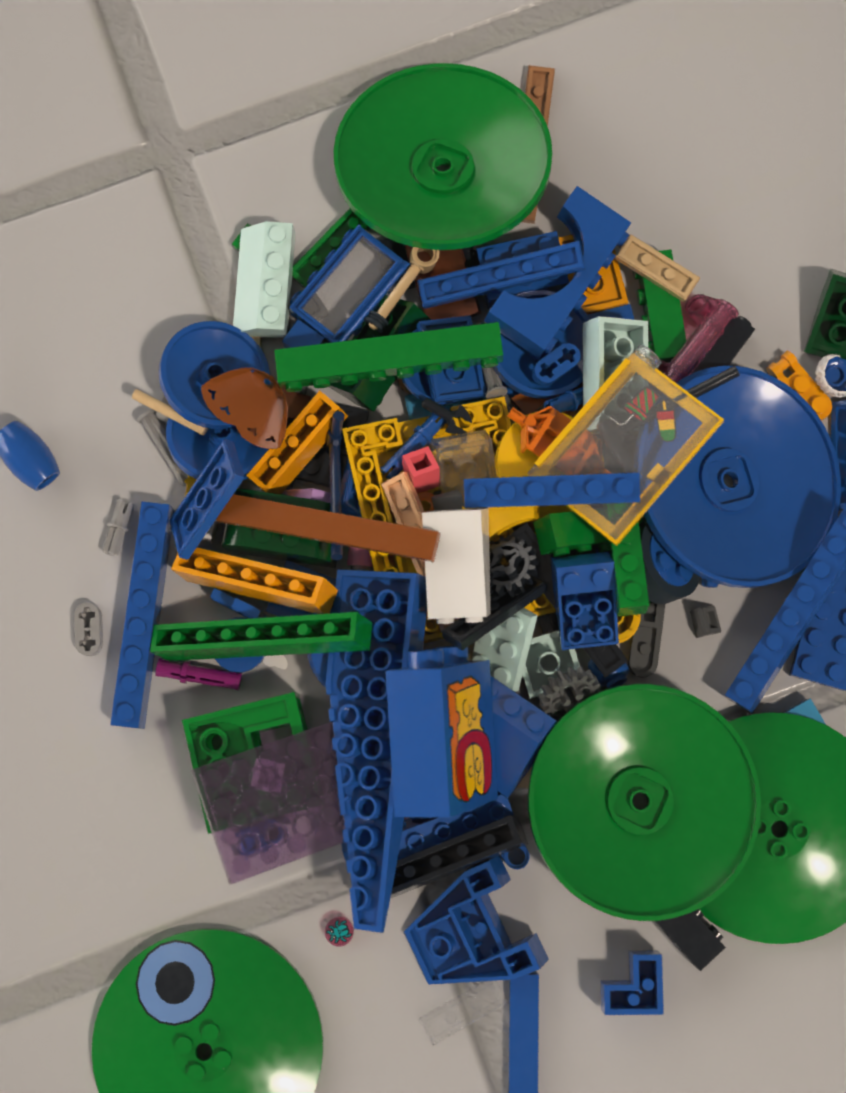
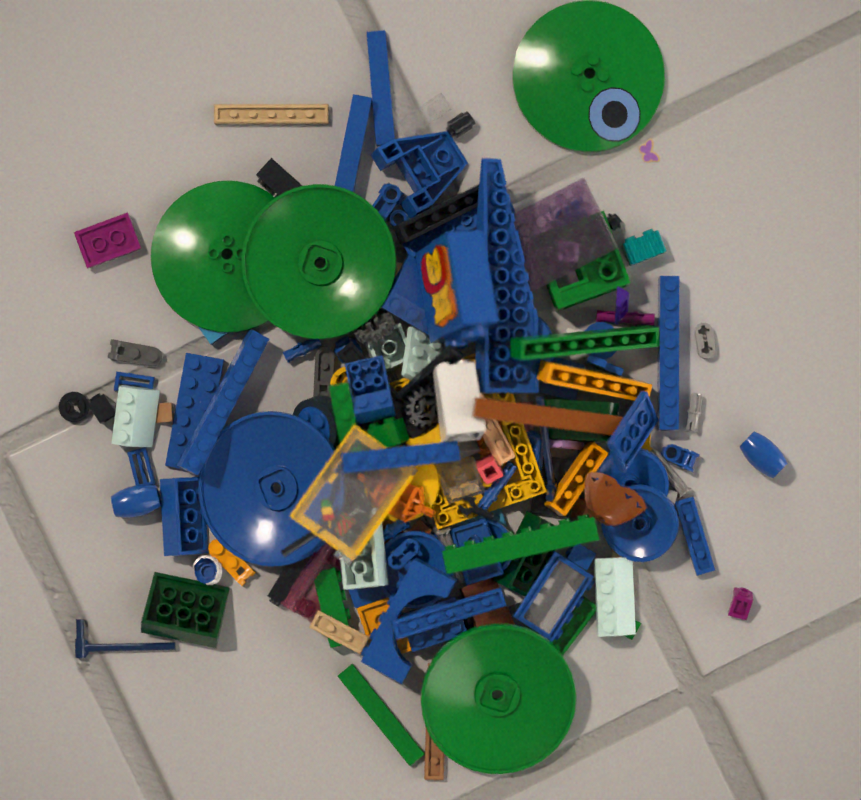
camera: 165 degrees right, 5 degrees up
(88, 257) = (741, 603): none -> magenta bracket
(135, 920) = (648, 154): none -> medium lavender sticker
(140, 350) = (694, 536): none -> blue plate
(143, 464) = (681, 457): none -> blue piece
(158, 774) = (643, 247): none -> teal brick
(165, 410) = (671, 495): tan bar -> none
(196, 819) = (614, 221): none -> black plate
(201, 691) = (621, 304): none -> dark purple slope
(339, 931) = (510, 158): tile -> none
(377, 320) = (531, 572): tan piece -> none
(409, 992) = (460, 124): none -> black brick
(536, 878) = (383, 204): none -> blue piece
(573, 980) = (353, 142): none -> blue brick
(606, 160) = (381, 714): none -> green tile
(640, 993) = (310, 138): blue brick -> none
(677, 677) = (301, 349): none -> blue pin
(692, 1039) = (271, 114): none -> tan tile
(705, 621) = (283, 390): dark grey slope -> none

